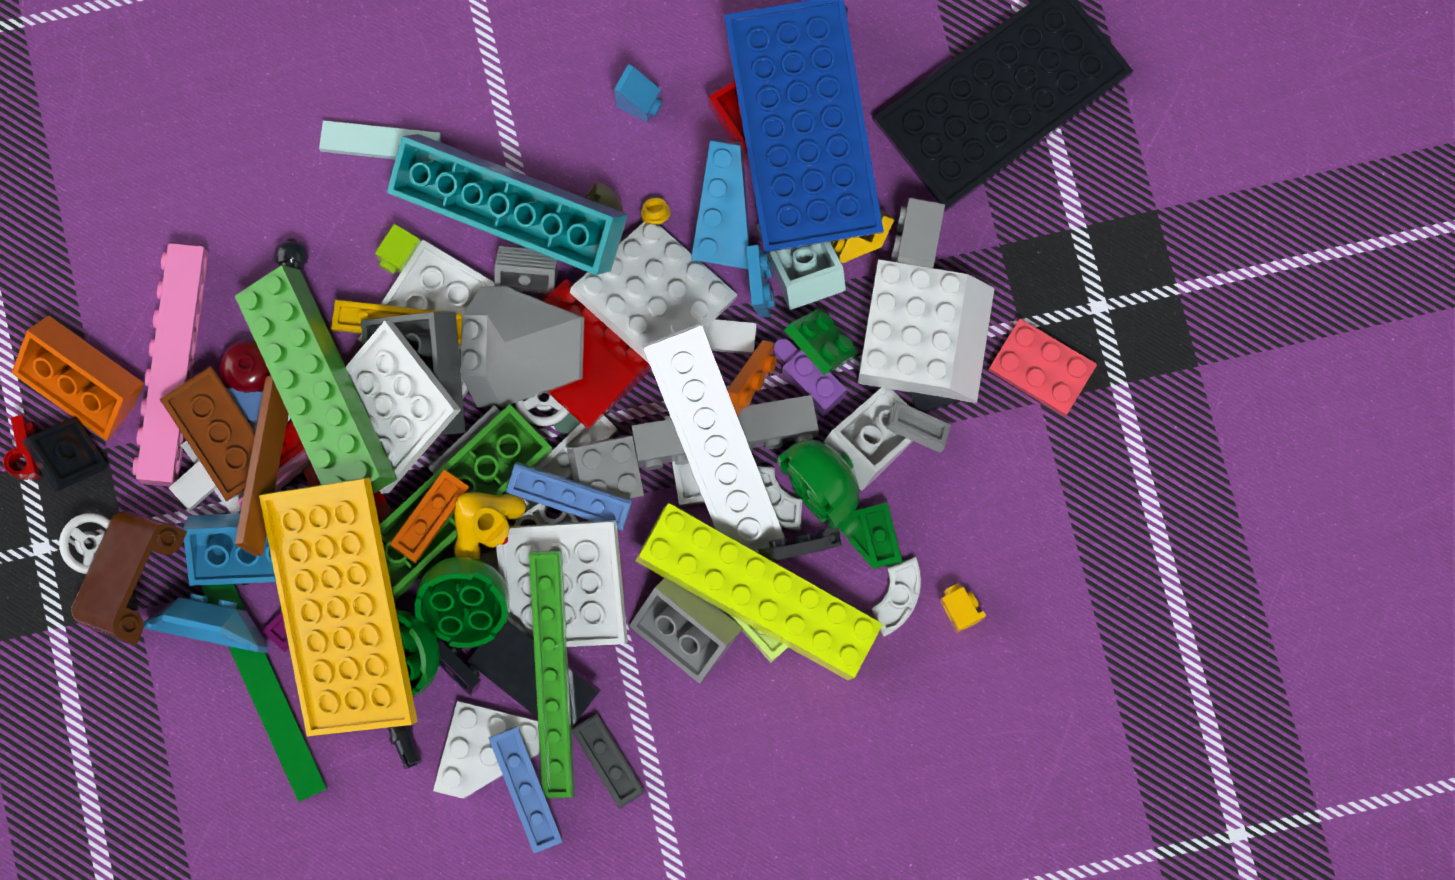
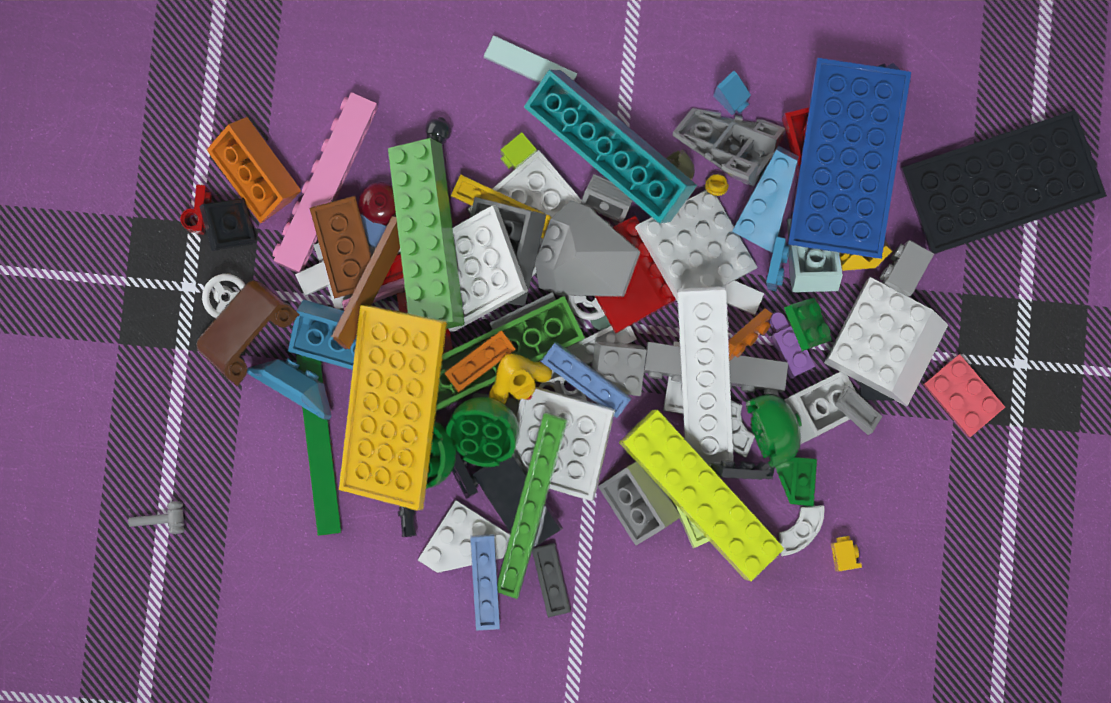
camera: 10 degrees right, 5 degrees up
(110, 839) = (174, 518): none -> light grey piece
(277, 633) = (341, 406): magenta tile -> none
(656, 156) = (731, 144): none -> light grey wedge

